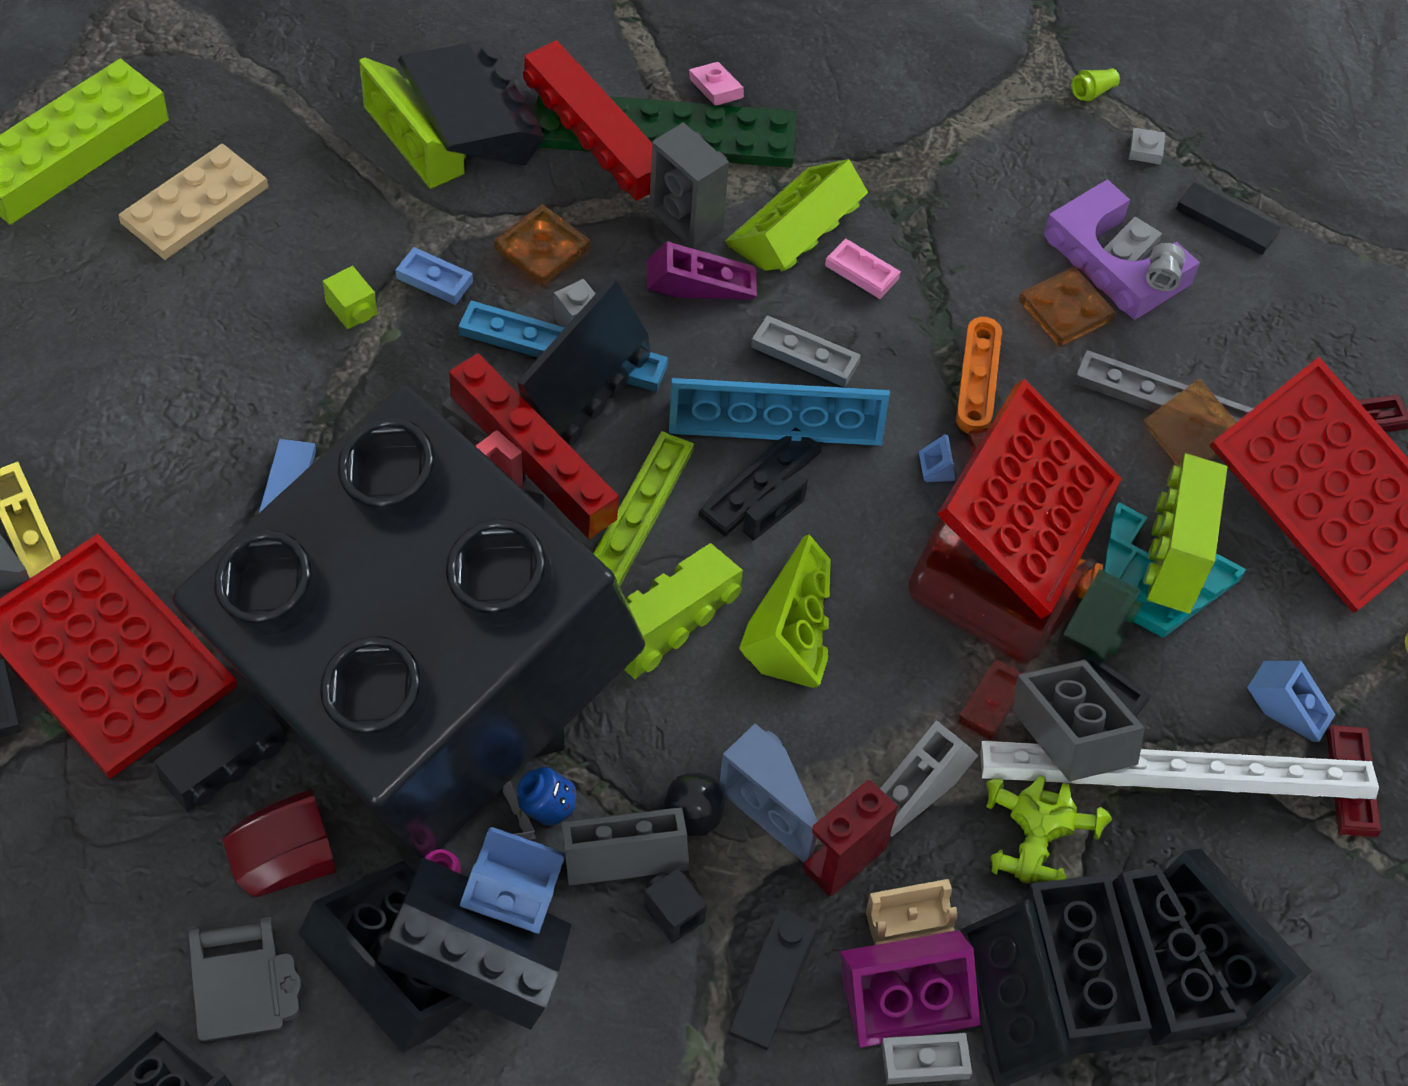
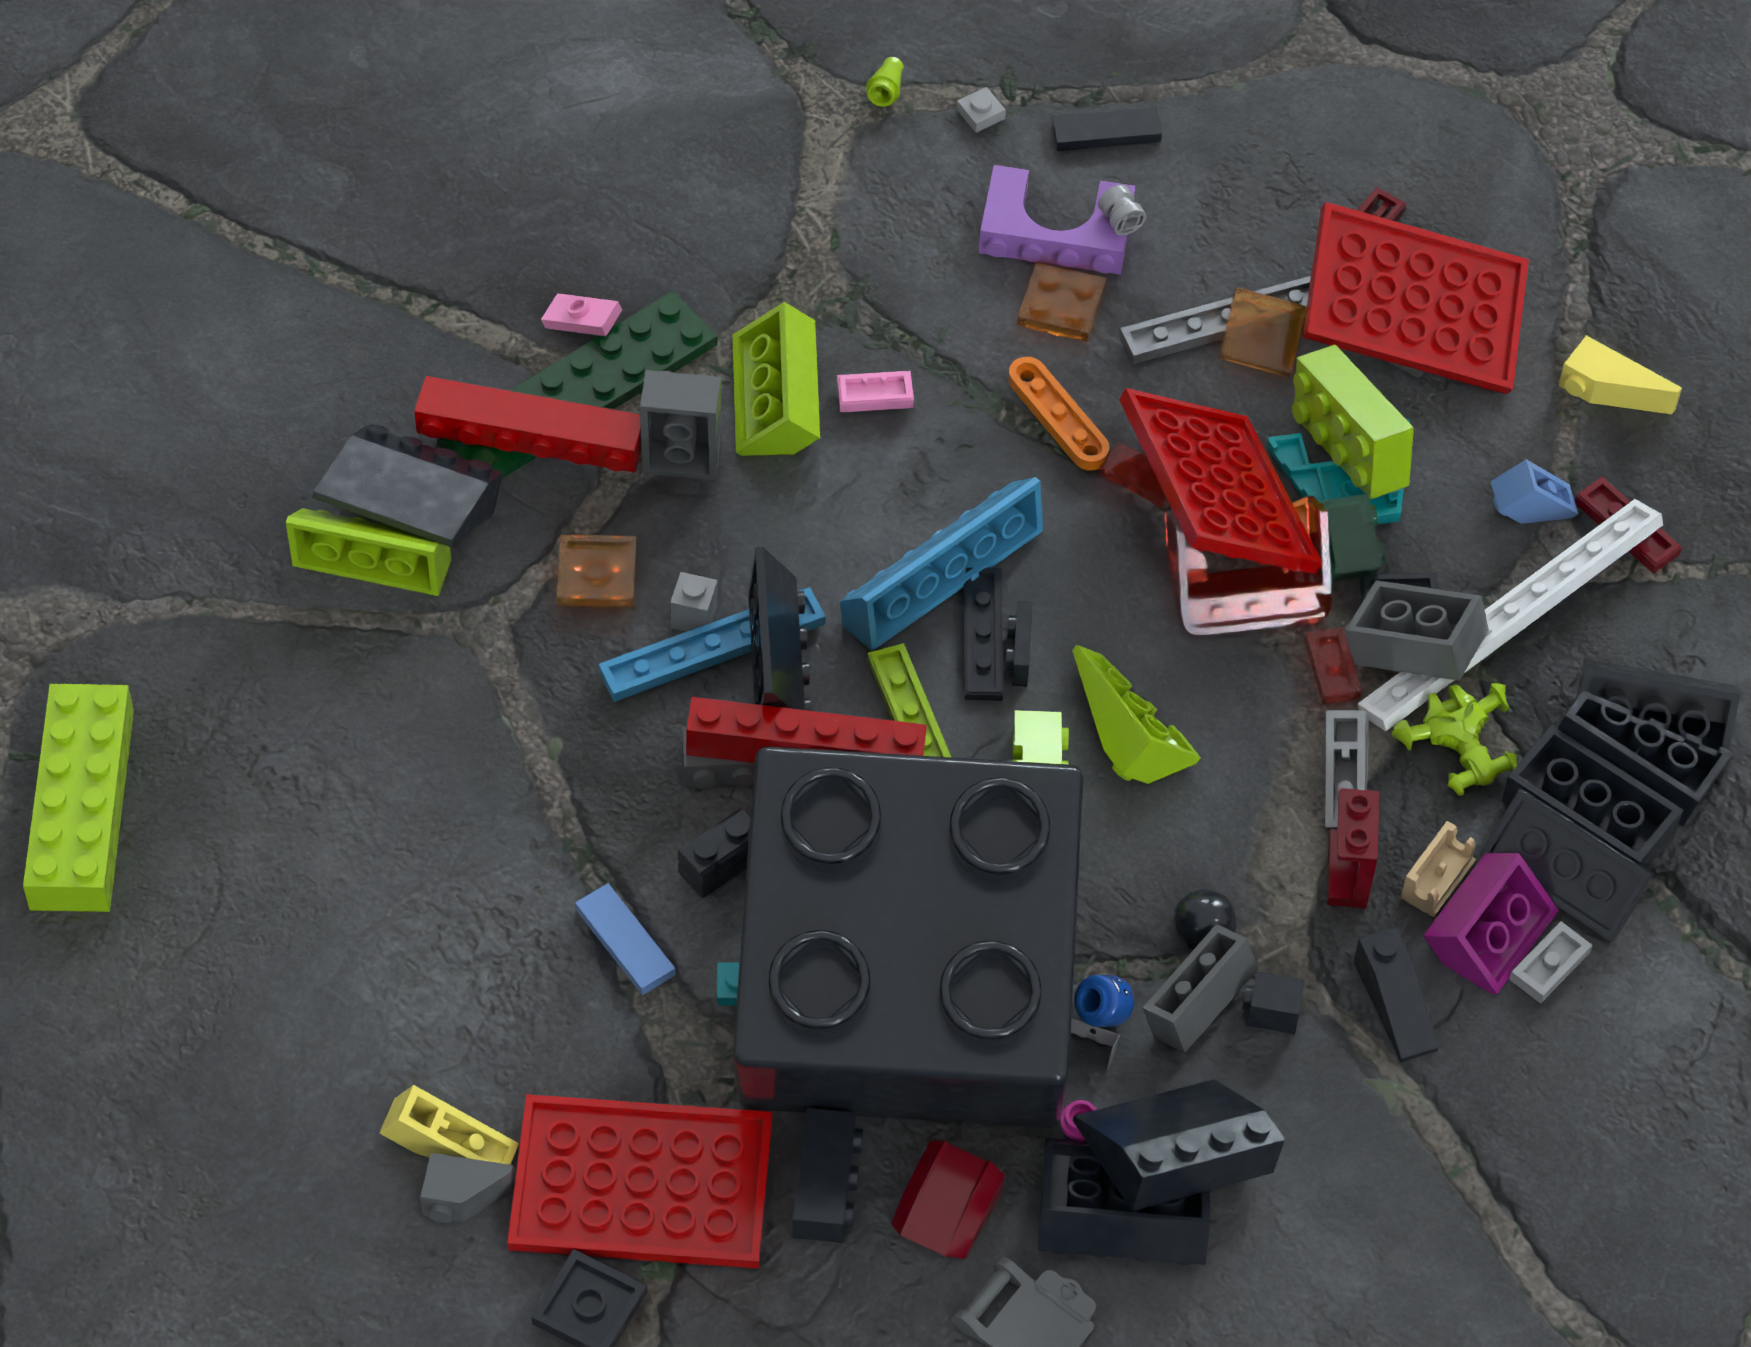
camera: 40 degrees left, 0 degrees up
(193, 201) = (251, 764): tan plate -> none
(350, 297) = (495, 740): lime brick -> none
(434, 275) = (539, 667): medium blue plate -> none
(513, 880) = (1154, 1080): medium blue panel -> none
(698, 274) = (755, 497): magenta slope -> none
(766, 788) = (1265, 861): sand blue slope -> none
(805, 351) = (906, 497): light grey plate -> none
(937, 461) = (1100, 509): medium blue slope -> none
(1134, 241) = (1057, 205): light grey plate -> none

